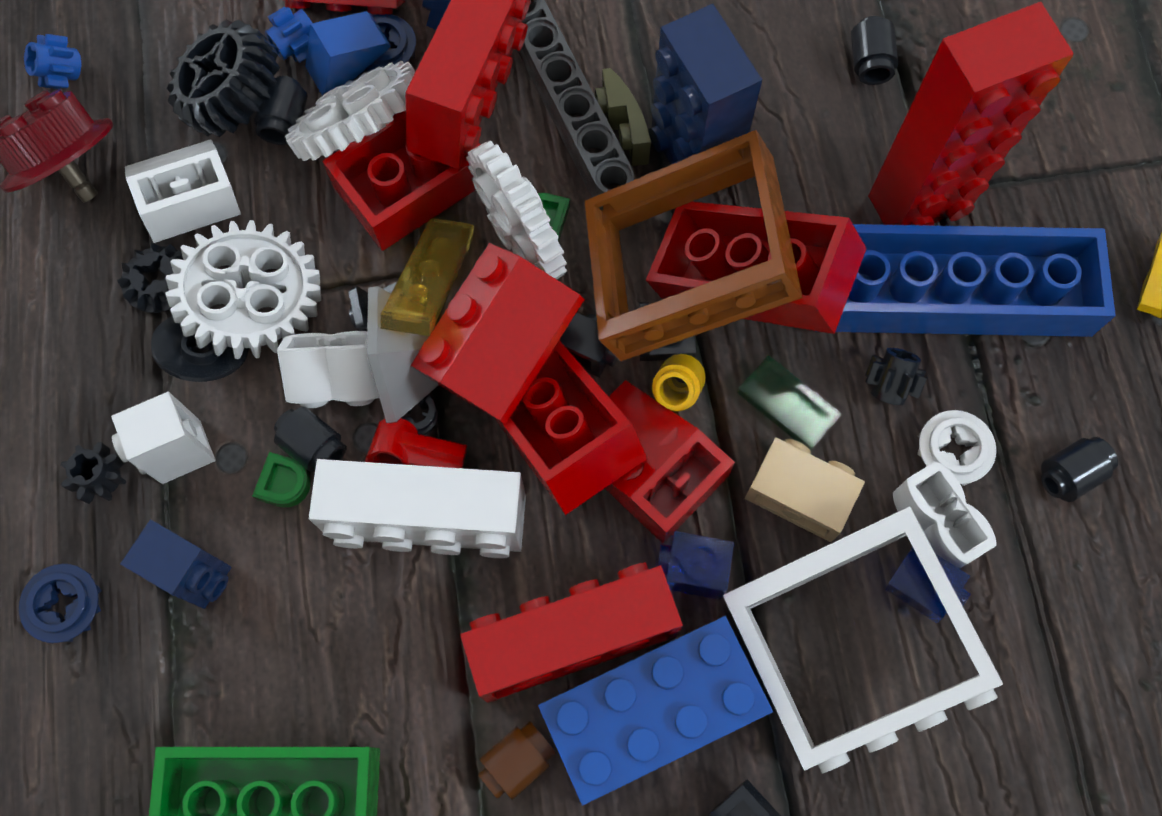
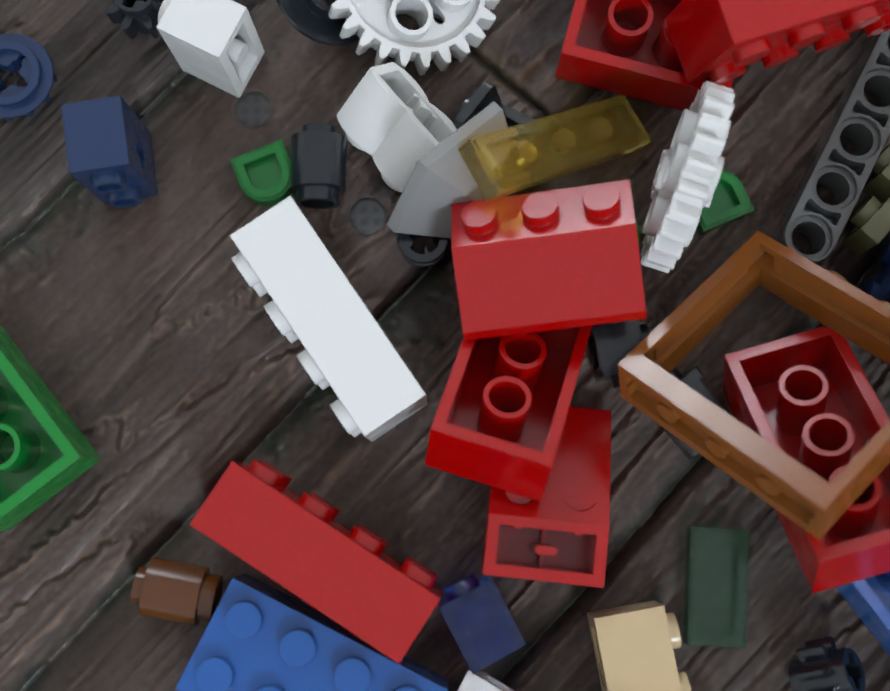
camera: 50 degrees right, 10 degrees up
(403, 445) = (374, 260): red piece -> none
(672, 393) = (646, 467): yellow brick -> none

